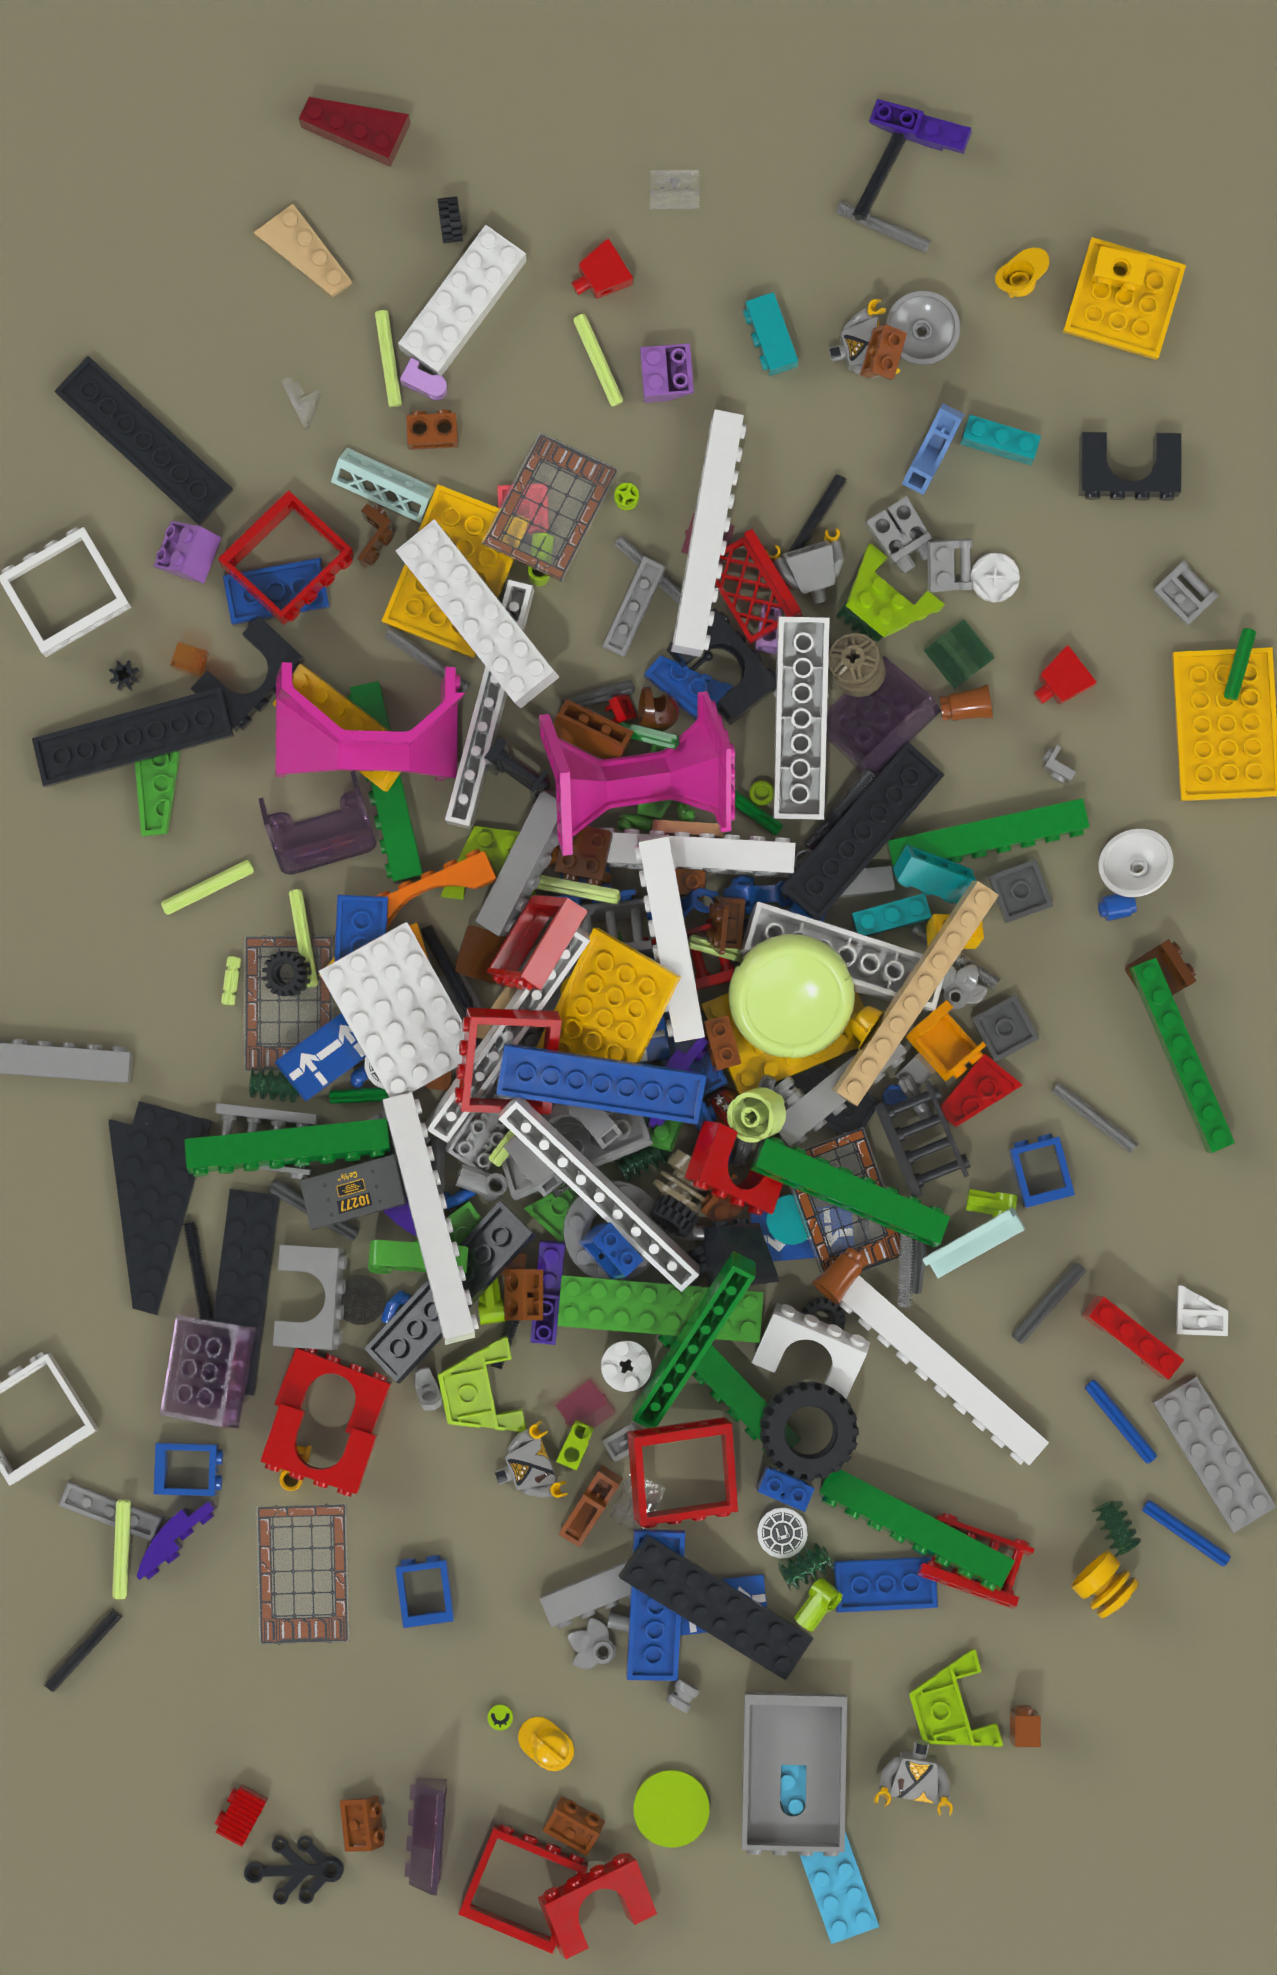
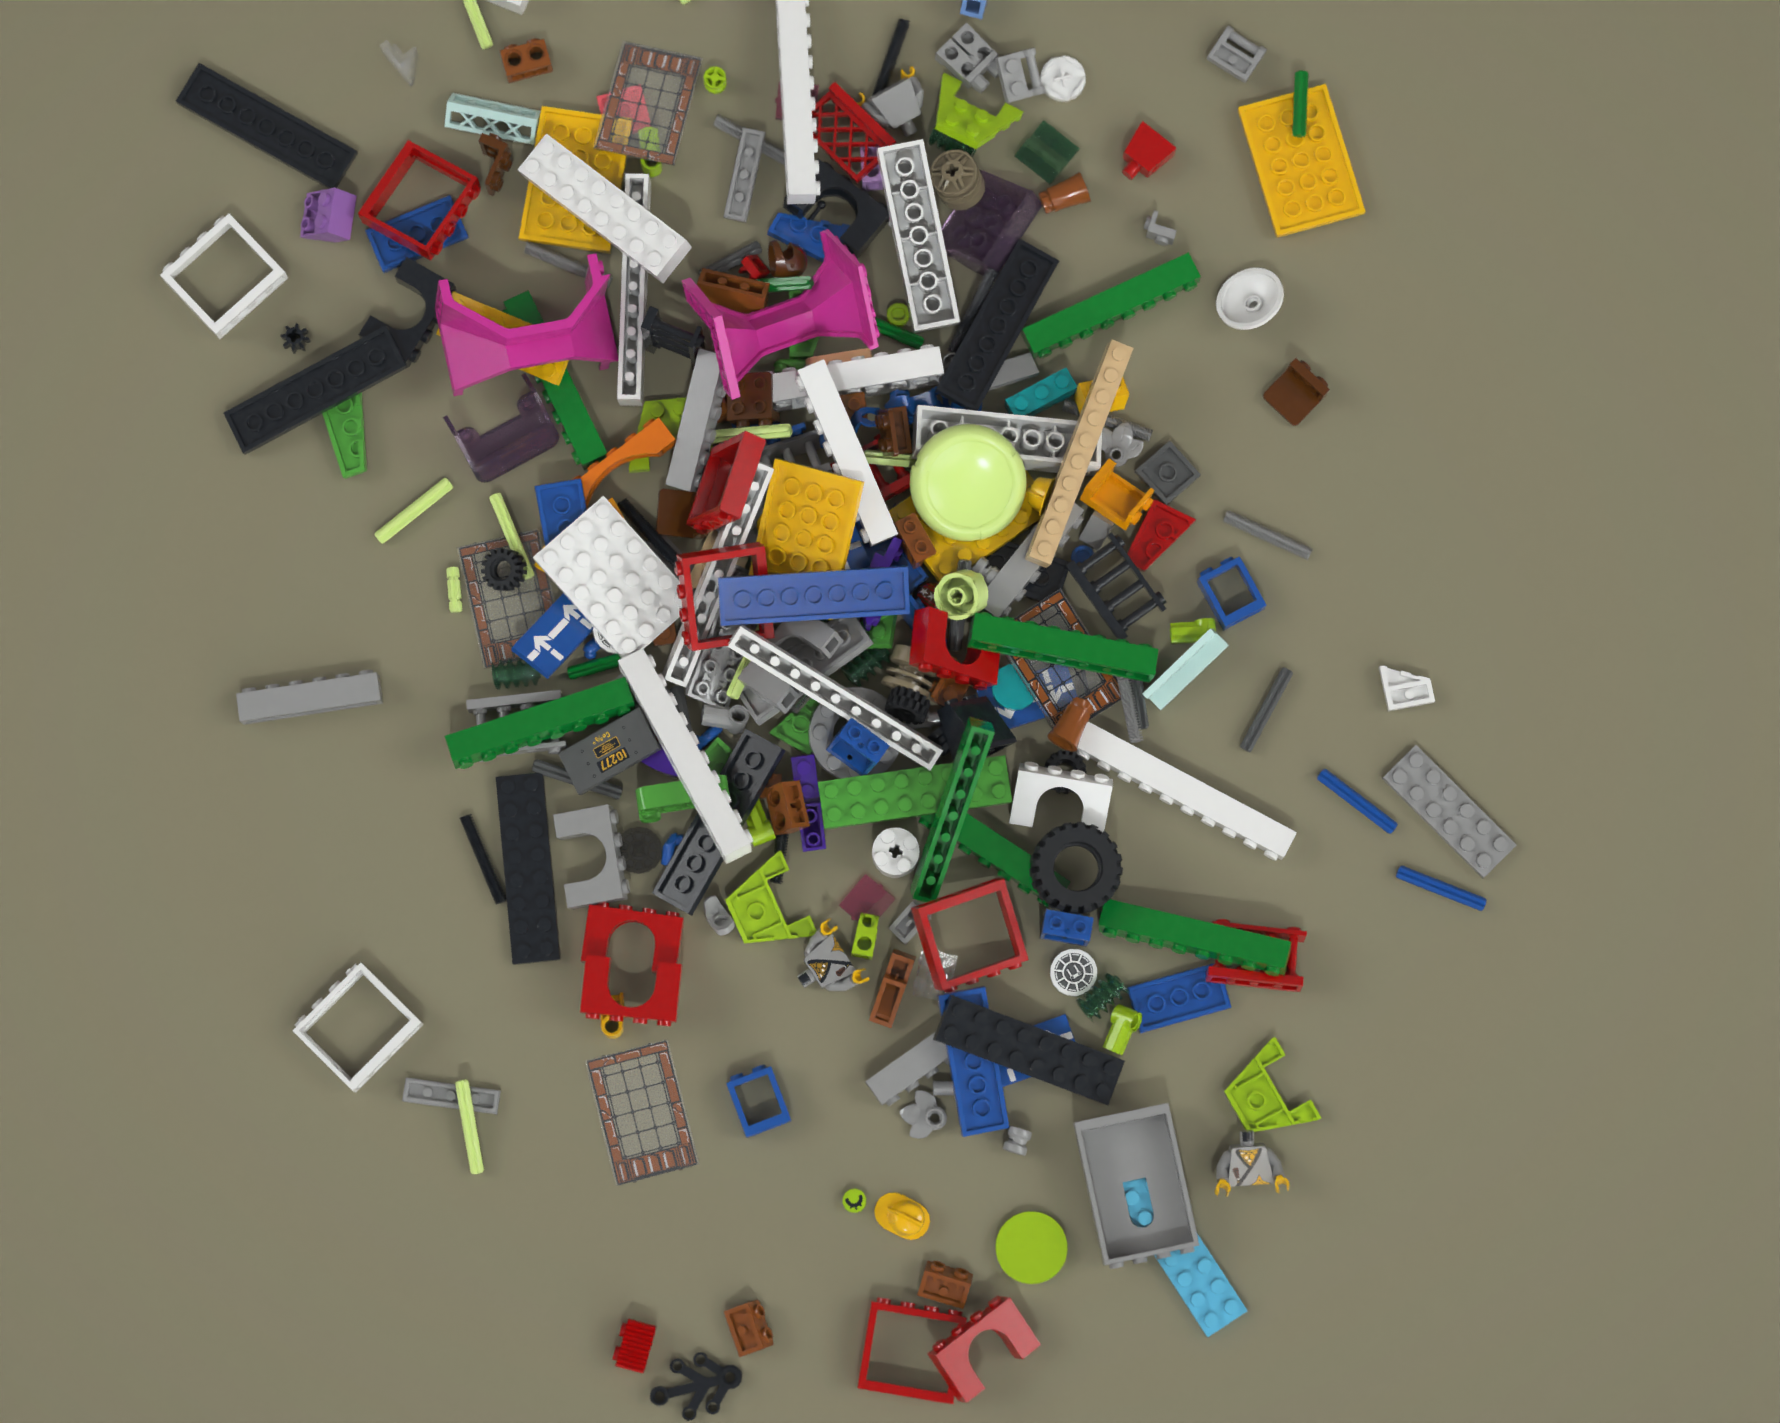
camera: 15 degrees left, 5 degrees down
(82, 1651) = (455, 1228): black axle -> none
(153, 1194) = (426, 798): black wing -> none
(161, 1468) = (489, 1042): blue window -> none
(165, 1544) = (508, 1114): dark purple slope -> none
(189, 659) = (351, 311): clear orange panel -> none
(207, 1371) = (512, 944): clear purple slope -> none
(427, 1834) = (811, 1320): clear purple slope -> none
(428, 385) = (508, 20): lavender leg -> none
(685, 813) = (832, 346): bright green arm -> none
(910, 1089) = (1094, 545): light grey axle -> none
(932, 874) = (1069, 349): teal brick -> none
(1020, 891) = (1153, 348): dark grey plate -> none
(1025, 1727) = (1337, 1094): dark orange brick -> none
(1109, 1589) = (1378, 948): yellow wheel -> none
(1116, 907) = (1242, 342): blue brick -> none
(1117, 1526) = (1376, 895): clear green piece -> none
(1147, 1347) = (1326, 706): red arch -> none
(1181, 1055) = (1332, 460): green brick -> none

